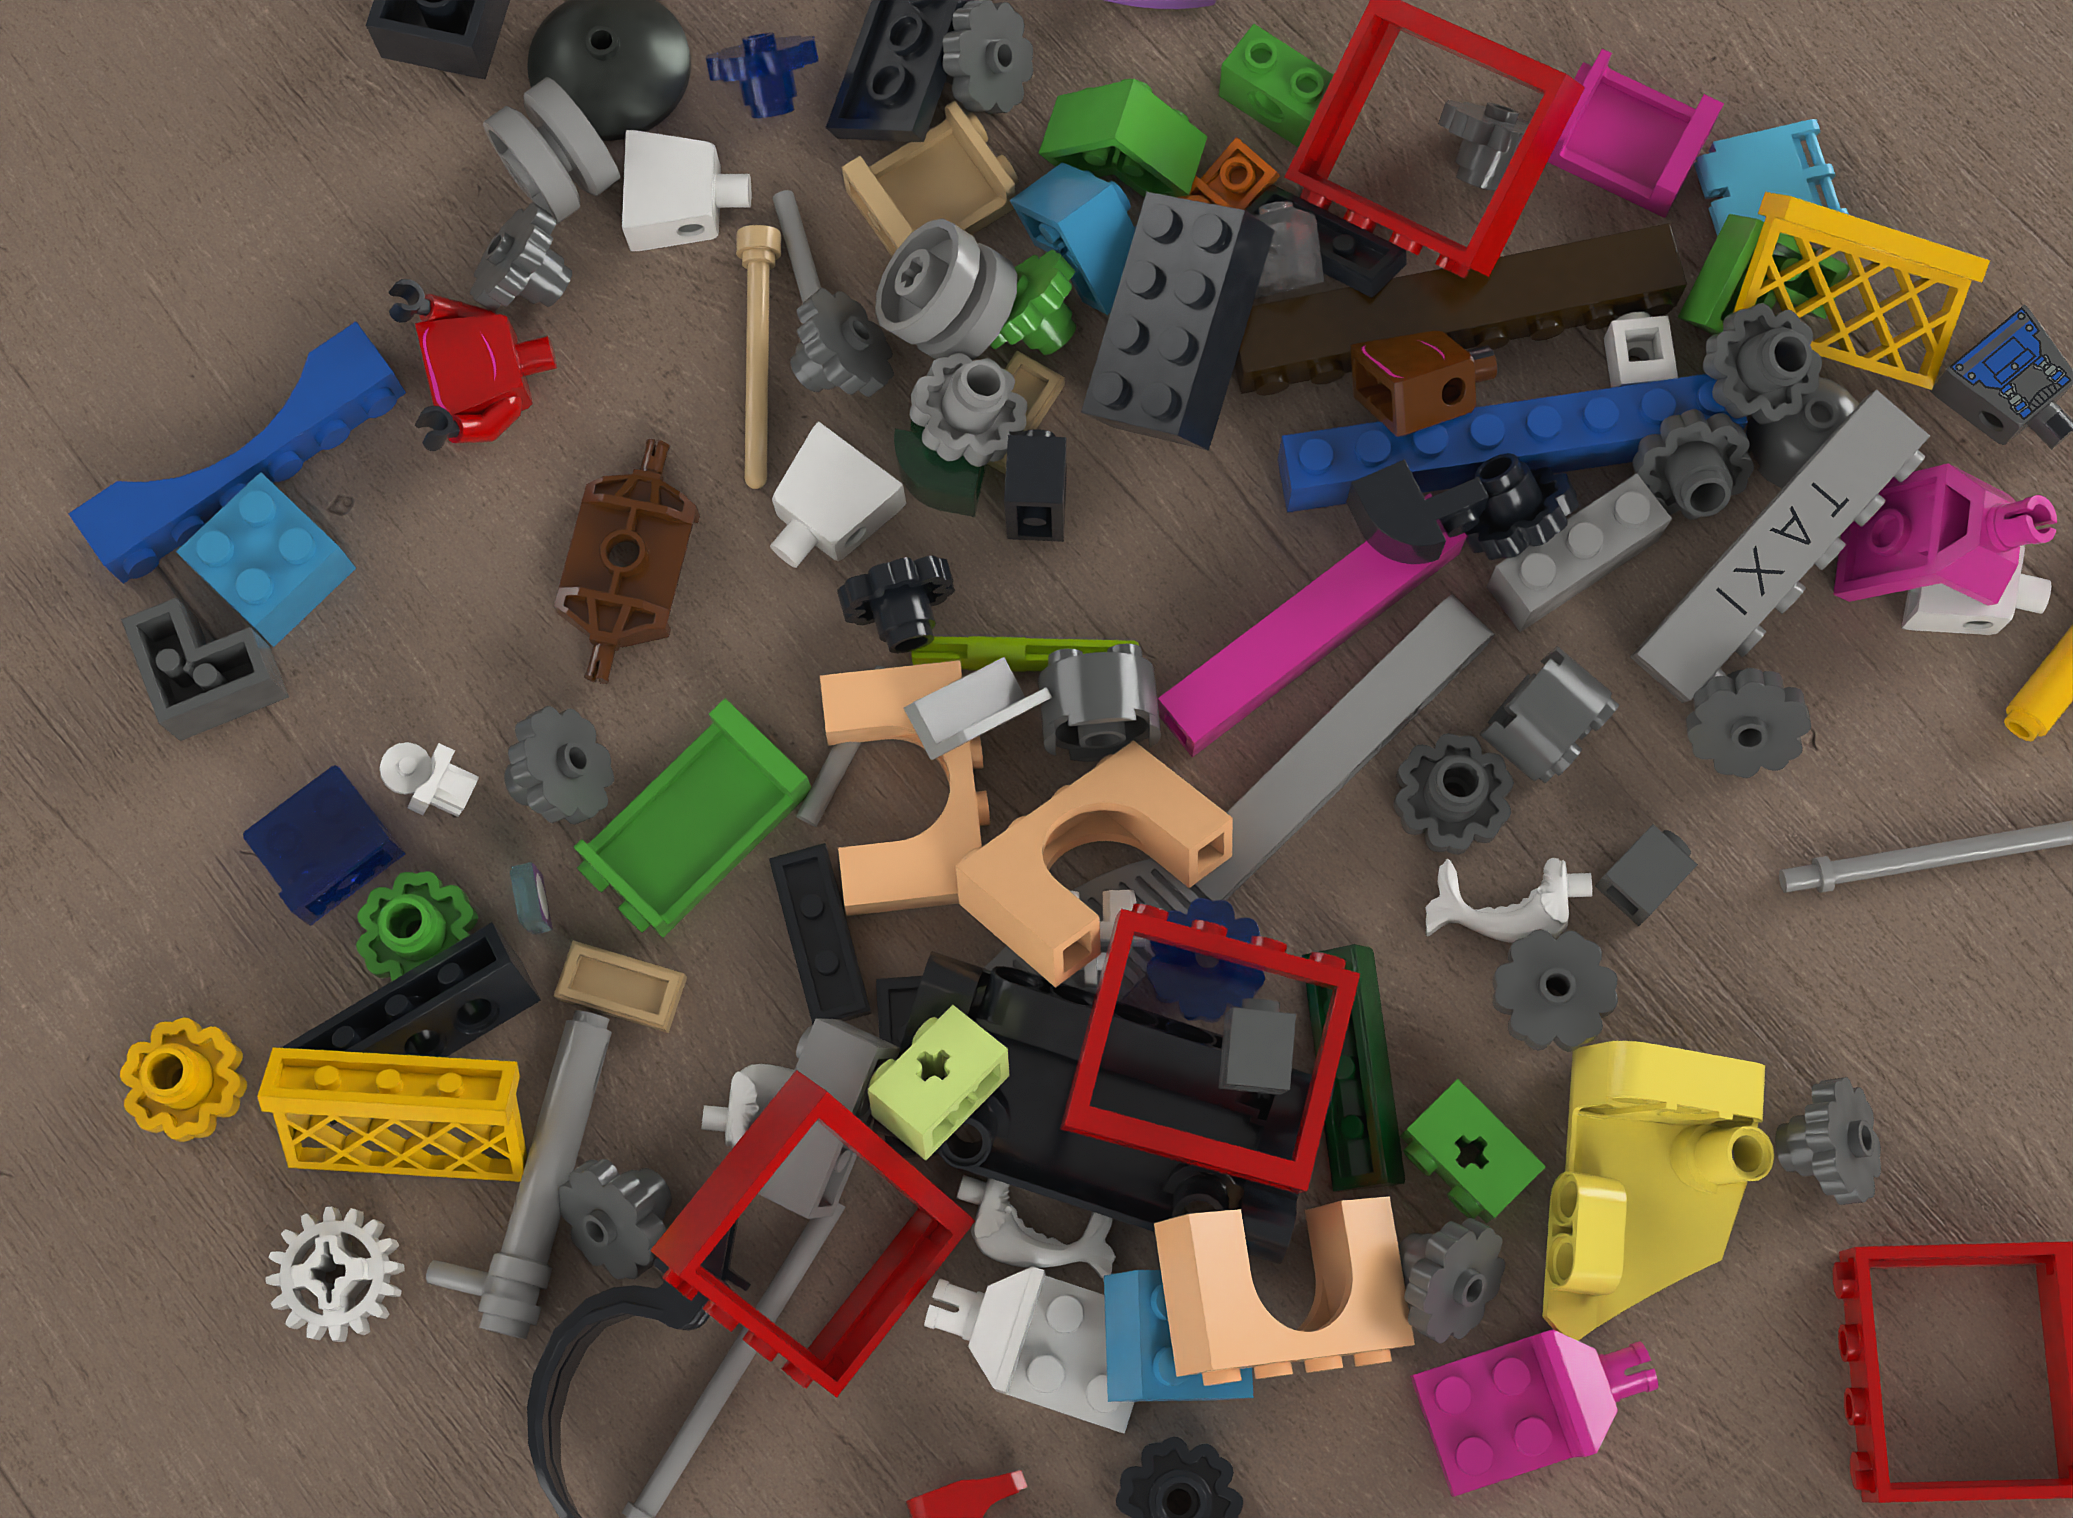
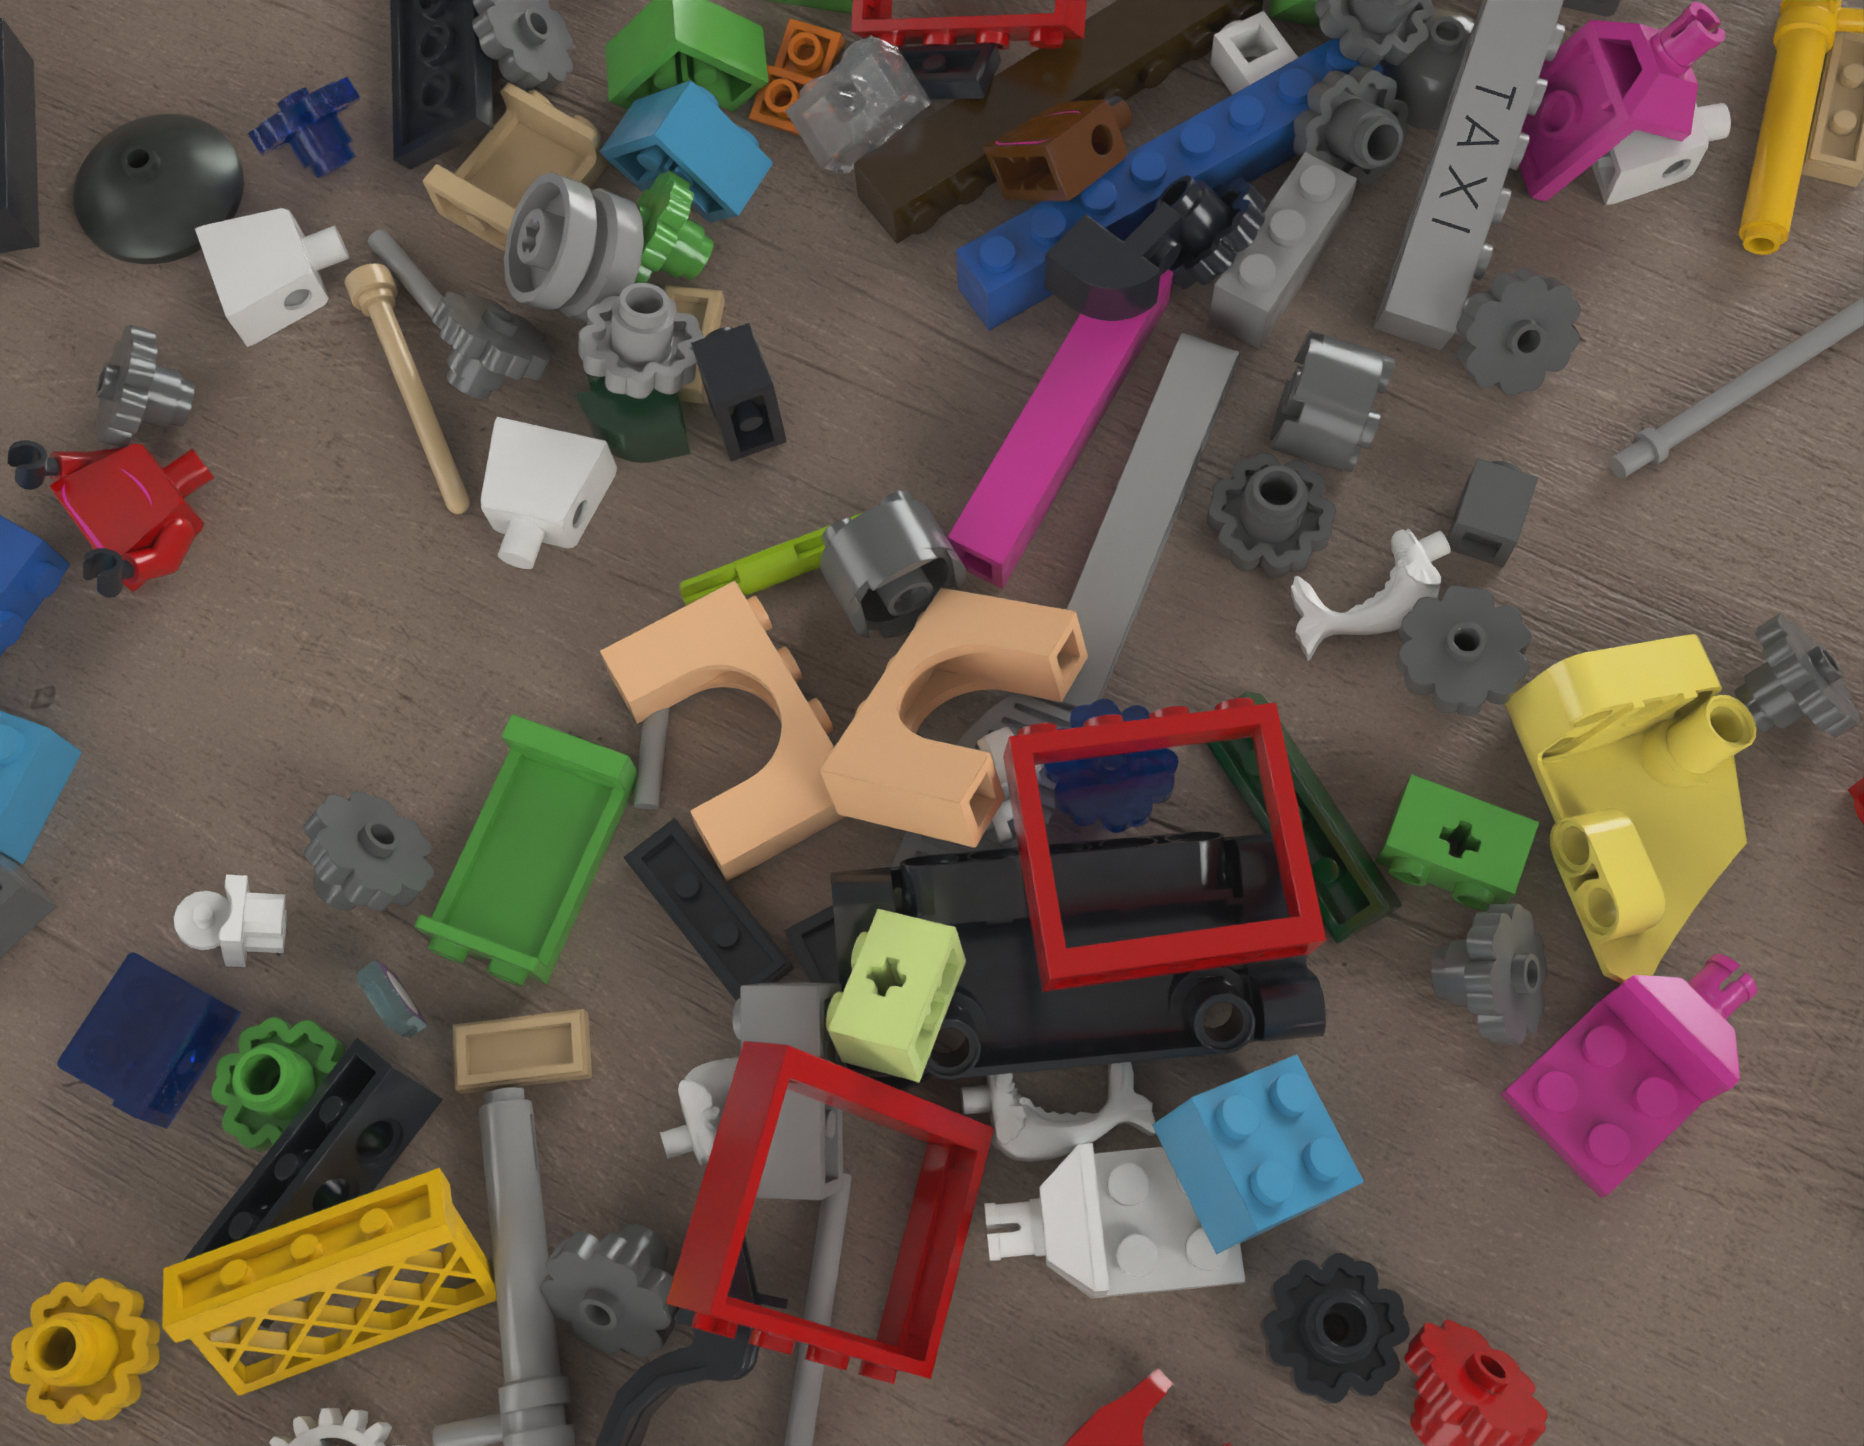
camera: 20 degrees left, 5 degrees down
(551, 150) = (126, 270): light grey wheel -> none
(633, 601) = (382, 664): reddish brown plate -> none
(898, 600) = (647, 548): black plant -> none
(970, 708) = (766, 619): light grey panel -> none
(1178, 320) = (809, 183): black brick -> none
(1223, 1325) = (1303, 1110): light nougat arch -> none
(1257, 1048) = (1213, 814): dark grey brick -> none

